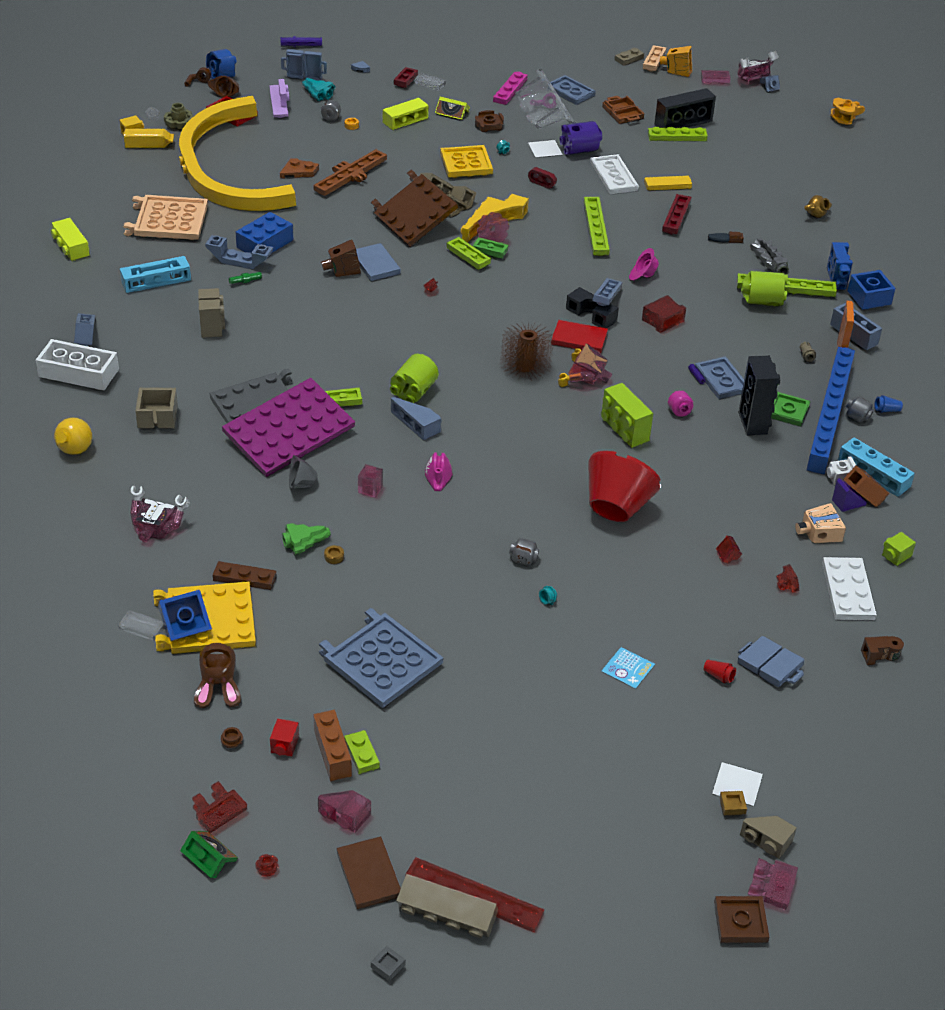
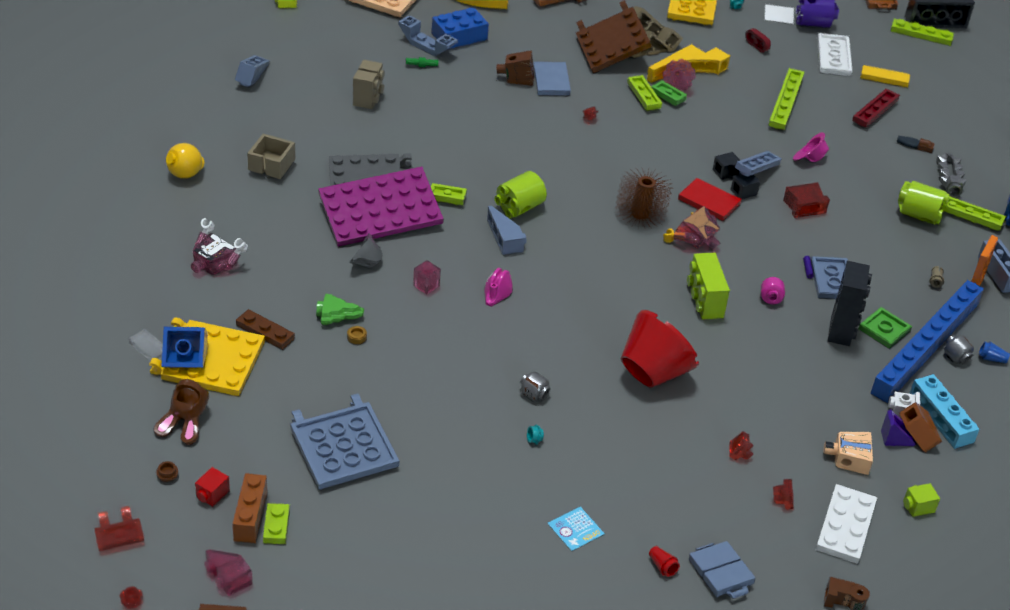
camera: 20 degrees right, 0 degrees up
(77, 364) = (225, 99): white brick -> none
(155, 274) = (342, 37): medium azure brick -> none
(207, 852) = (85, 567): green panel -> none

